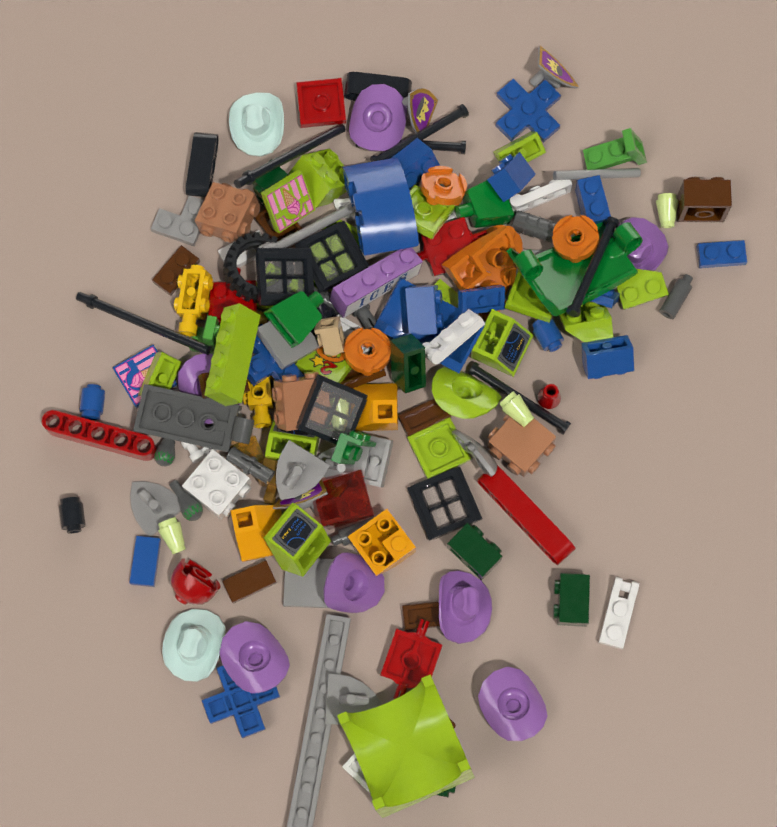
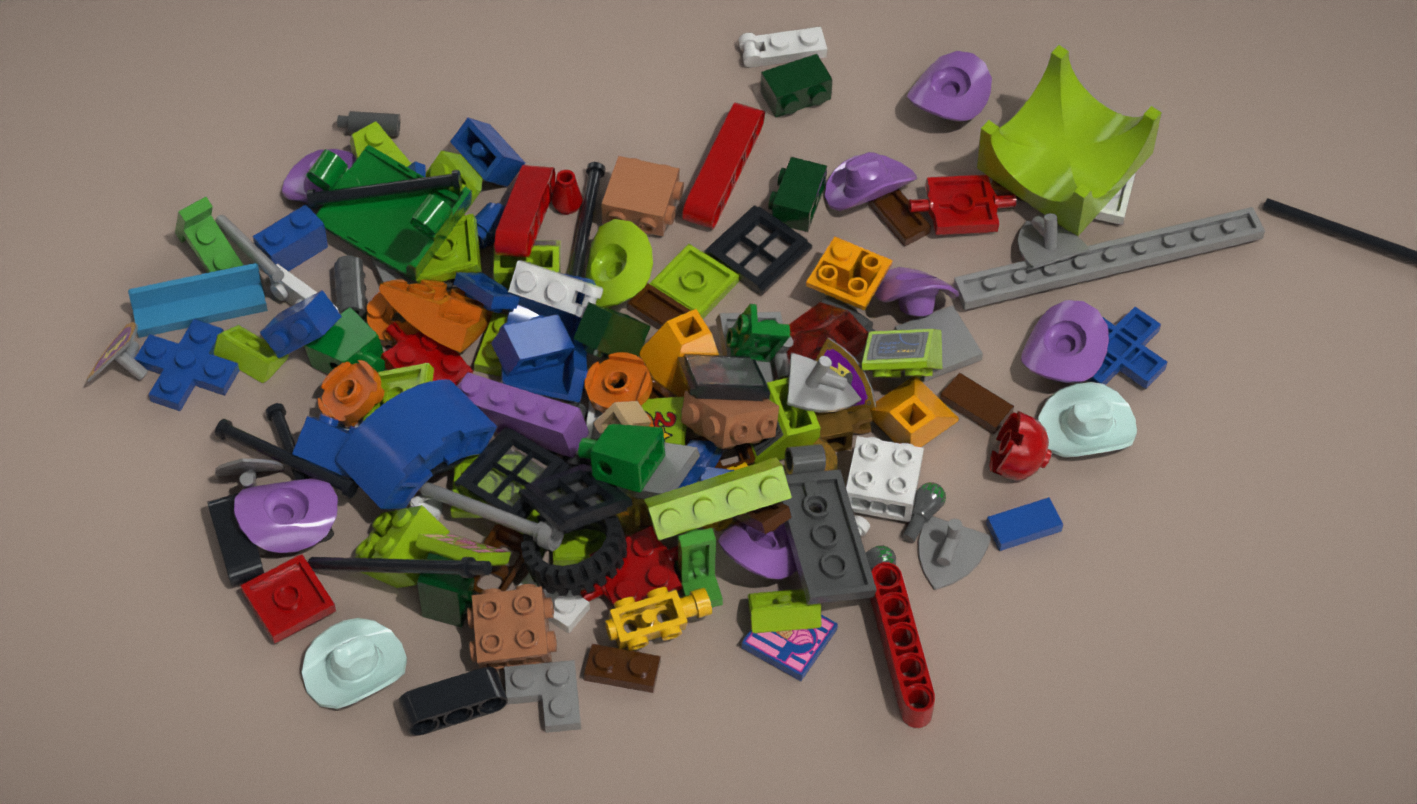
camera: 120 degrees left, 20 degrees down
(72, 515) = (1022, 626): black brick -> none
(92, 402) = (863, 674): blue brick -> none
(93, 302) = (723, 745): black bar -> none
(172, 535) = (974, 505): yellowish green cone -> none
(250, 465) = (842, 438): dark grey pin -> none
(478, 452) = (679, 229): light grey brick -> none
(516, 408) = (609, 197): yellowish green cone -> none
(536, 353) = (525, 211): none -> red beam
(571, 130) = (200, 297): none -> dark azure panel
(575, 250) = (356, 242): orange plate -> none
(667, 209) = (259, 170): yellowish green cone -> none
(704, 200) = (233, 128): reddish brown brick -> none
(722, 254) = (290, 104): blue plate -> none

